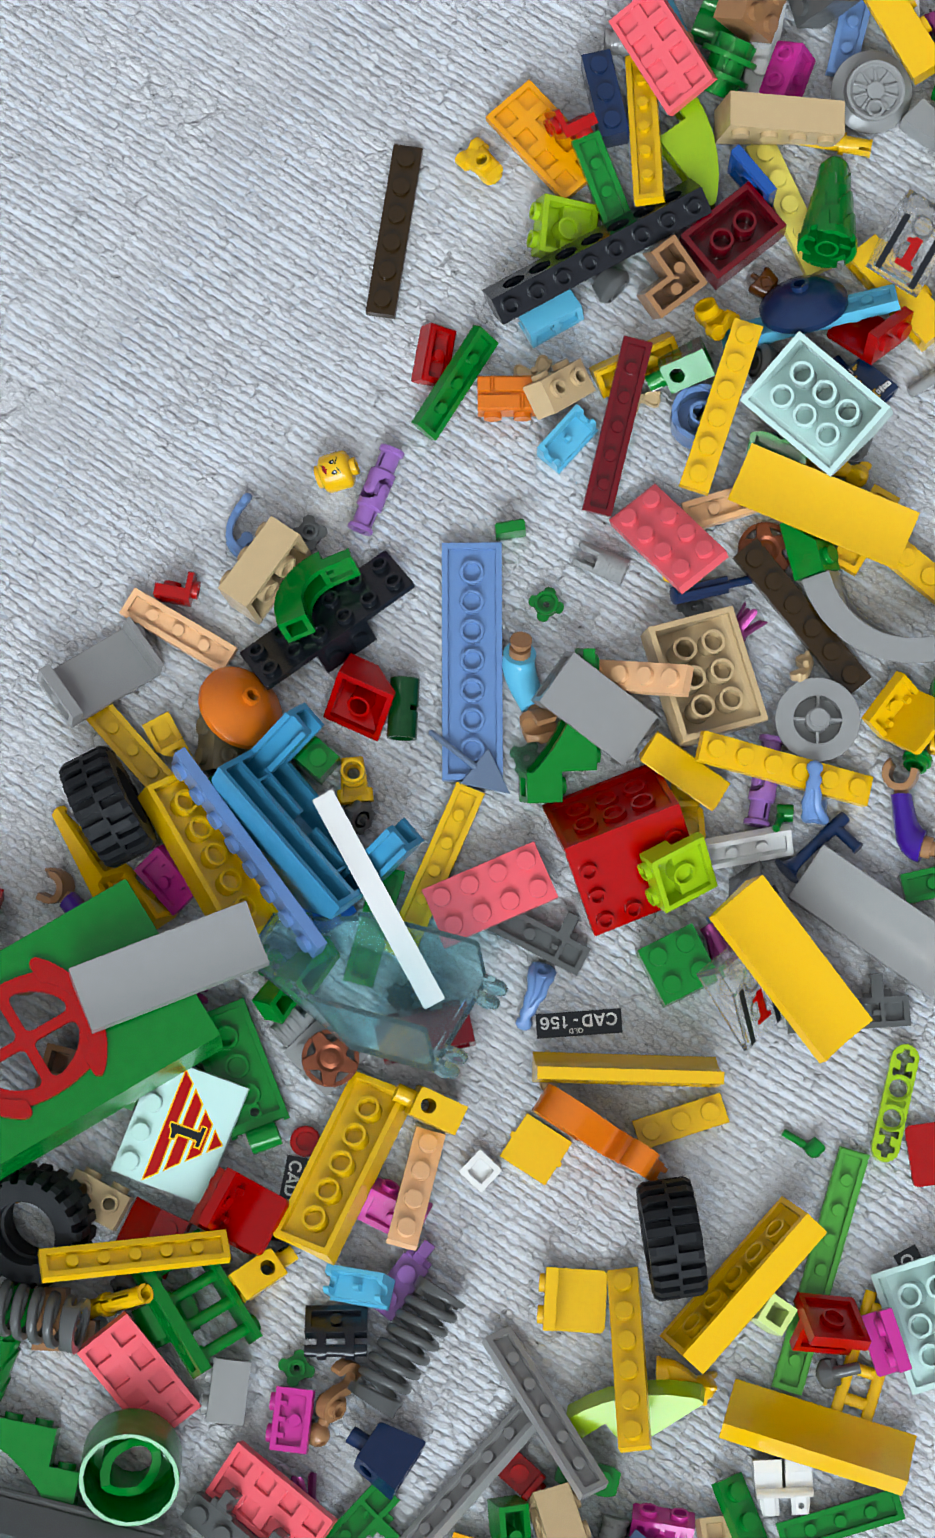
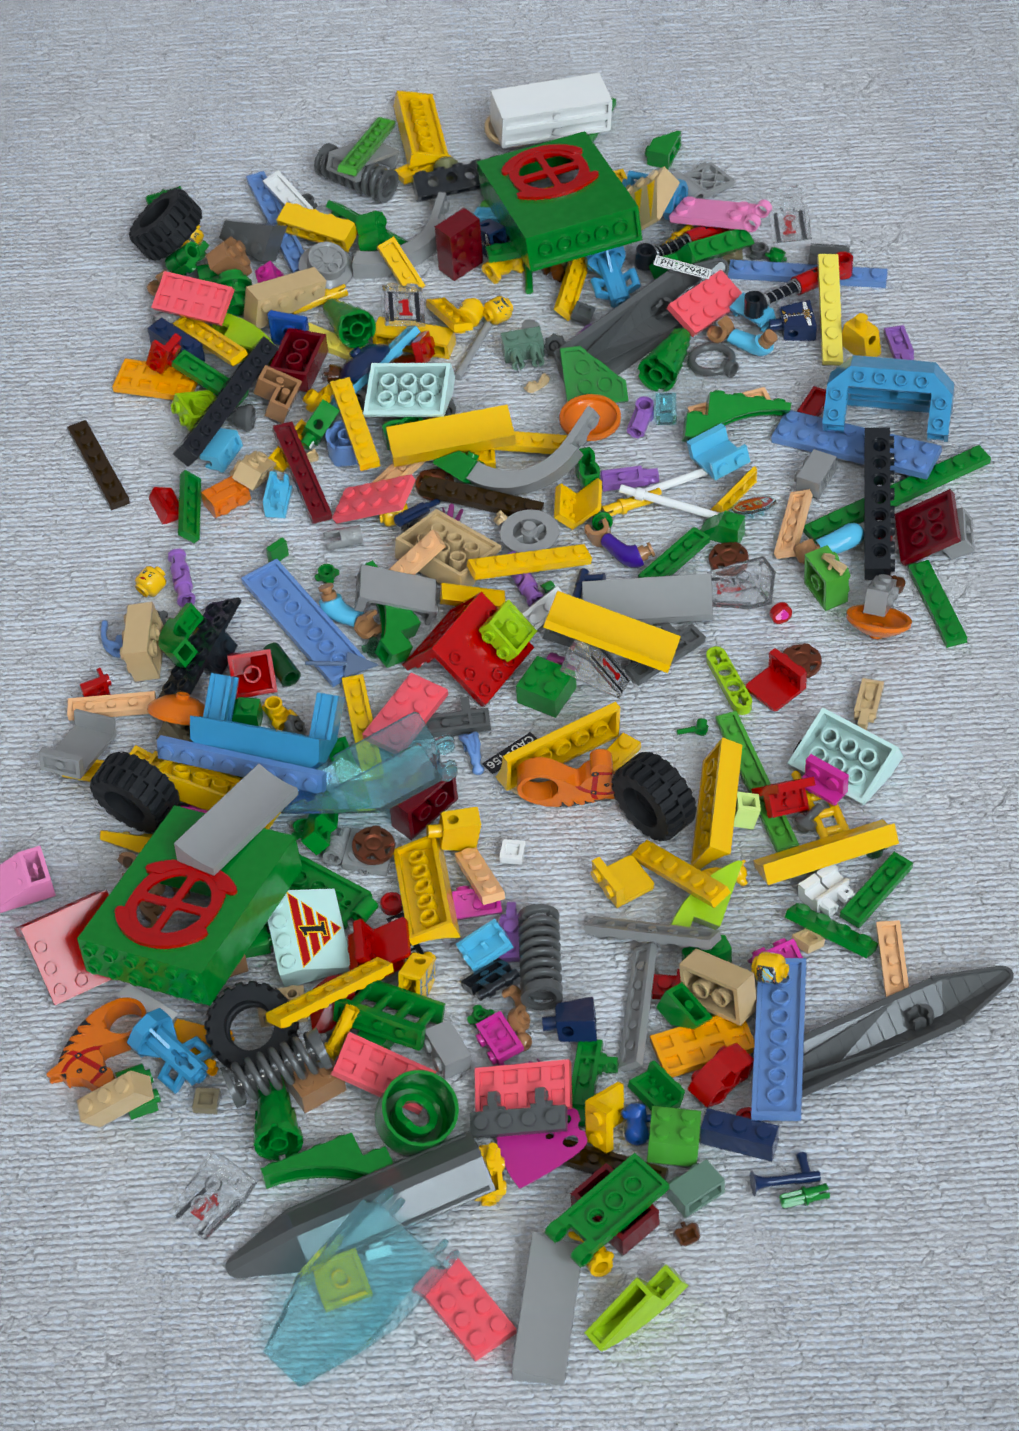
camera: 35 degrees left, 30 degrees down
(378, 899) = (329, 731): white sticker -> none
(480, 161) = (126, 405): yellow plate -> none
(535, 1149) = (537, 825): yellow piece -> none
(813, 806) = (565, 573): medium blue piece -> none

